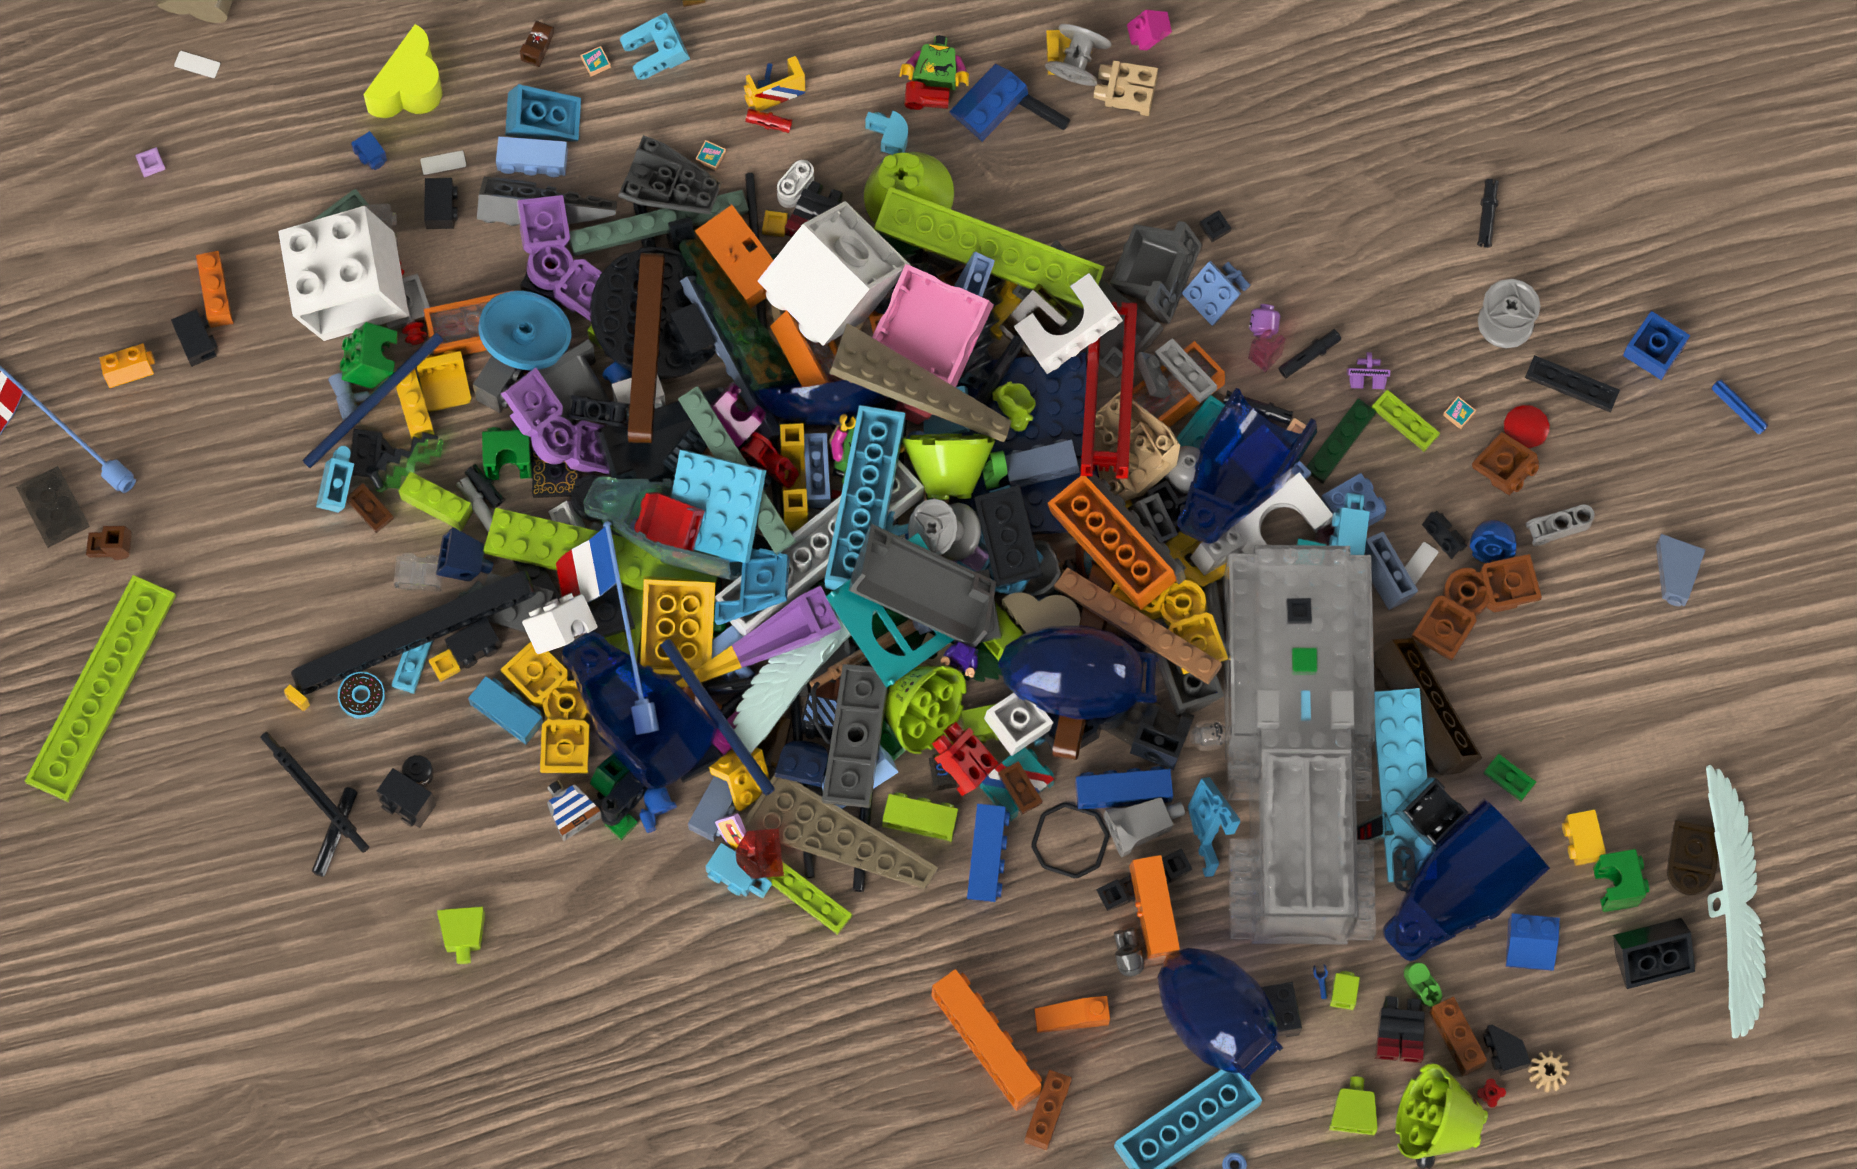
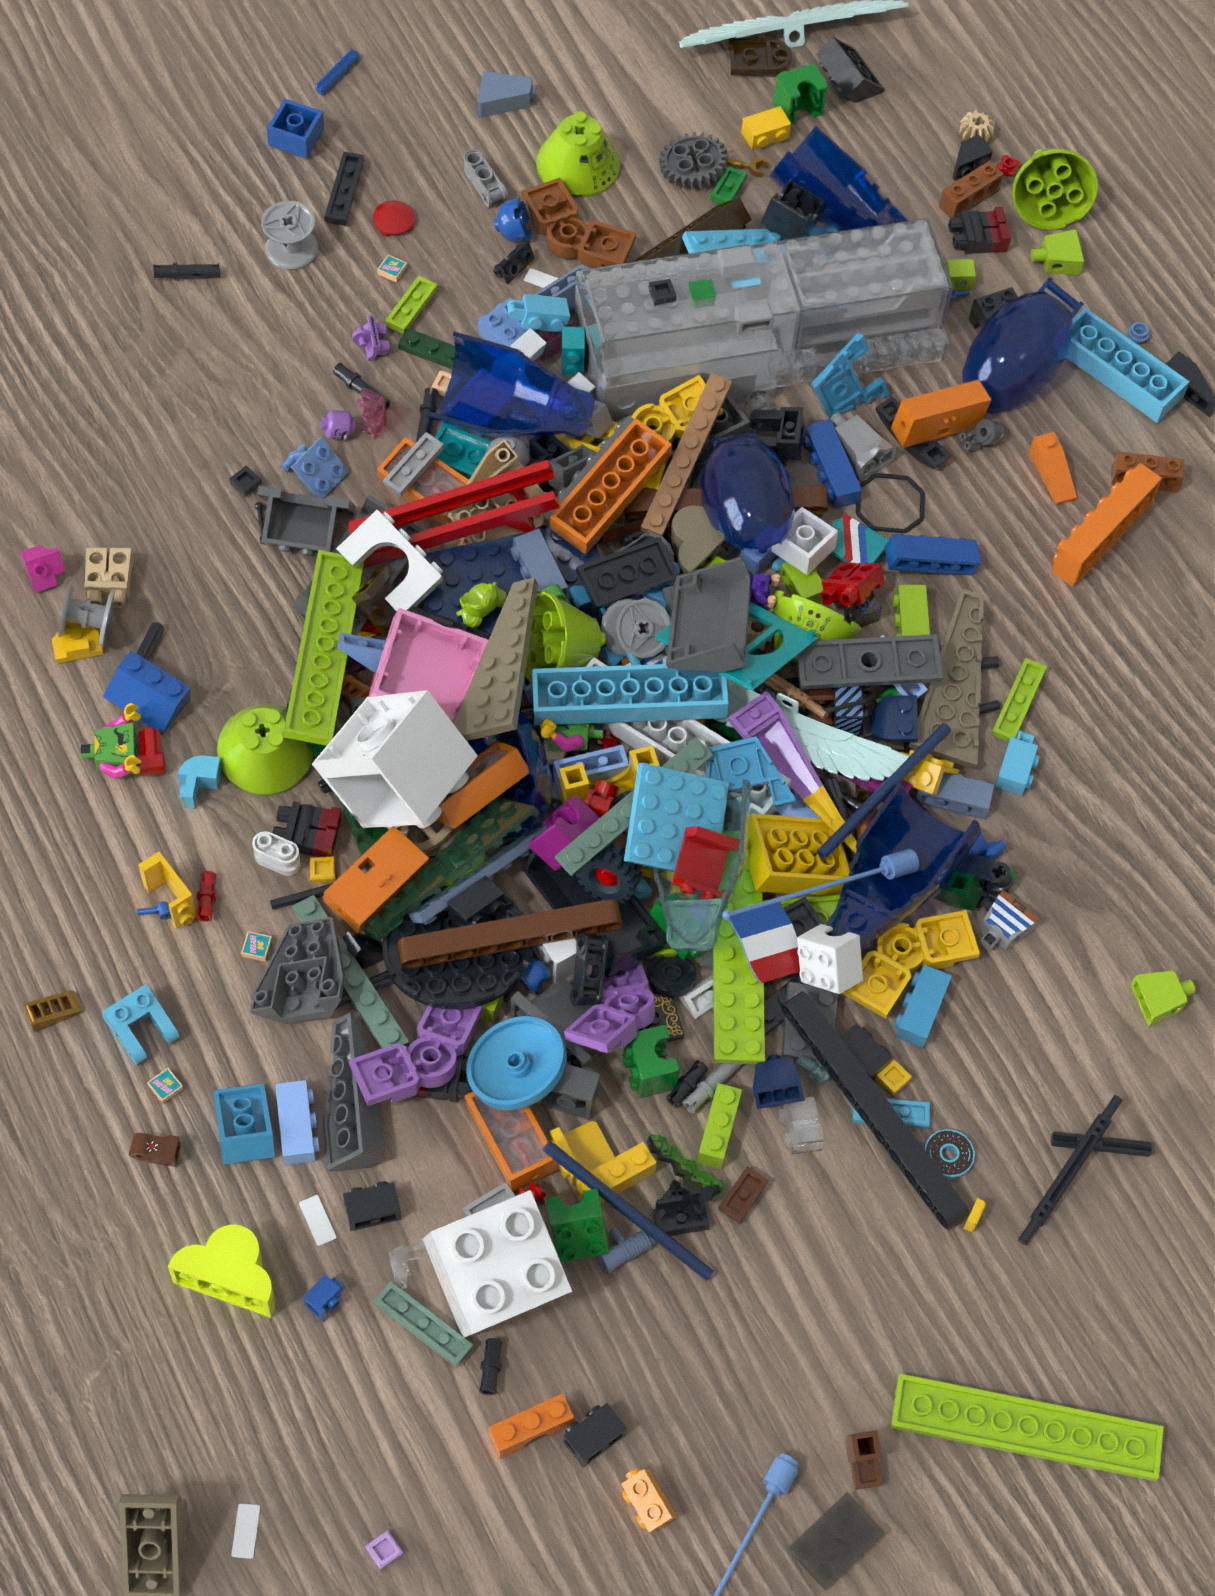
camera: 105 degrees left, 10 degrees down
(269, 268) = (490, 1366): none -> black pin
(335, 481) = (726, 1231): medium azure brick -> none
(405, 798) = (1052, 1073): black brick -> none
(418, 769) = (1016, 1073): black head -> none
(731, 829) = (986, 763): slope -> none
(760, 854) = (1002, 735): clear red slope -> none
(1020, 788) = (865, 533): reddish brown plate -> none
(1152, 375) = (433, 484): dark grey plate -> none
(1429, 991) = (938, 217): bright green piece -> none
(1507, 463) = (435, 223): dark orange plate -> none
(1532, 942) = (869, 150): blue slope -> none
(1543, 798) = (755, 163): none -> pearl gold piece
(1550, 747) = (678, 164): none -> dark grey gear
(1573, 631) = (579, 156): none -> lime cone

